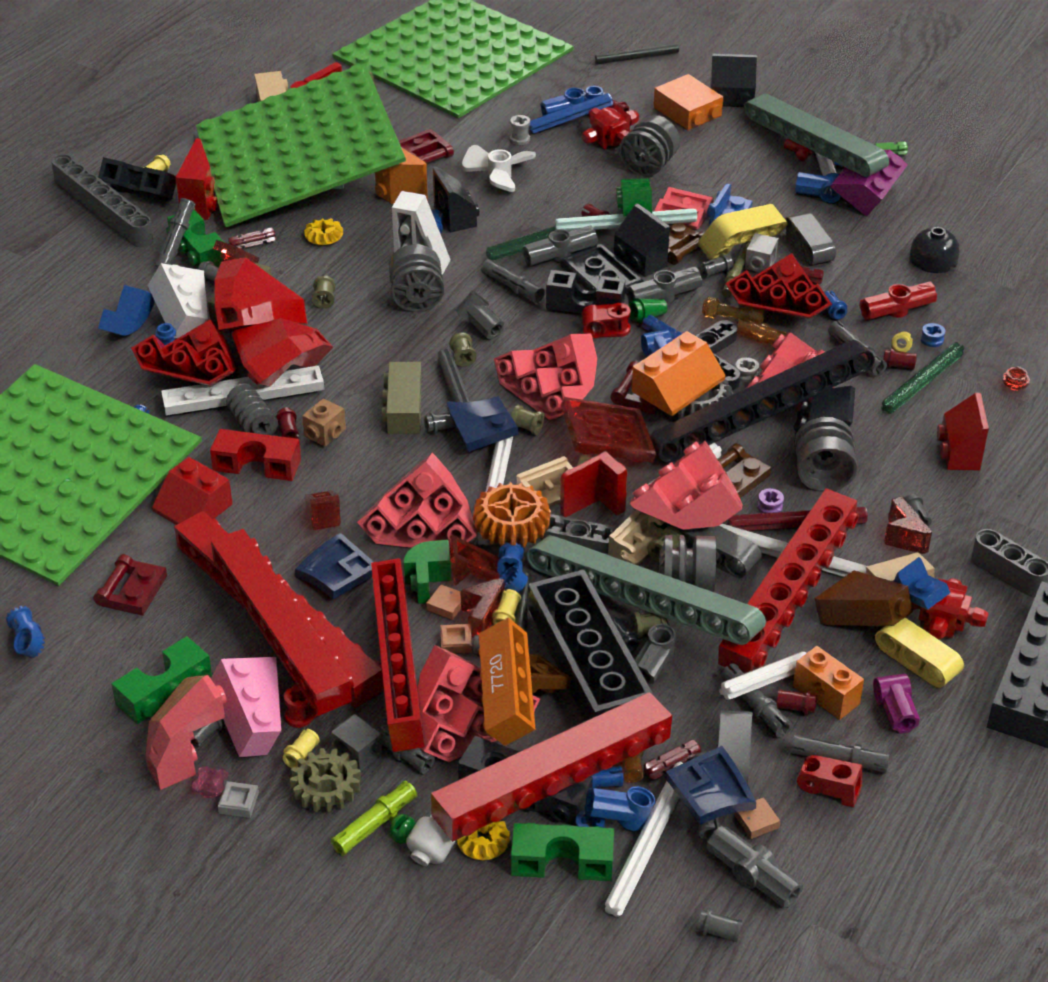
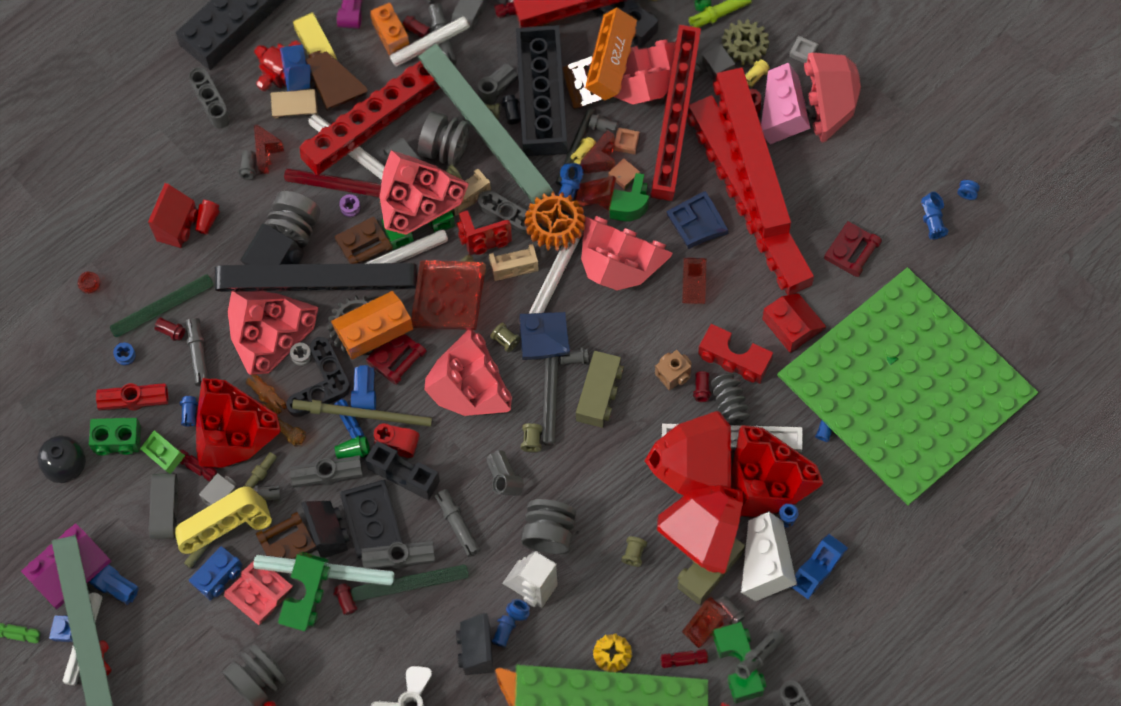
camera: 160 degrees left, 25 degrees up
(144, 695) = (855, 138): green arch -> none
(700, 317) = (317, 407): none -> olive bar
(840, 268) = (162, 452): none -> bright green plate
(893, 269) = (115, 429): none -> green brick
(900, 347) = (160, 337): light yellow pin -> none
(929, 456) = (206, 216): none -> red cone

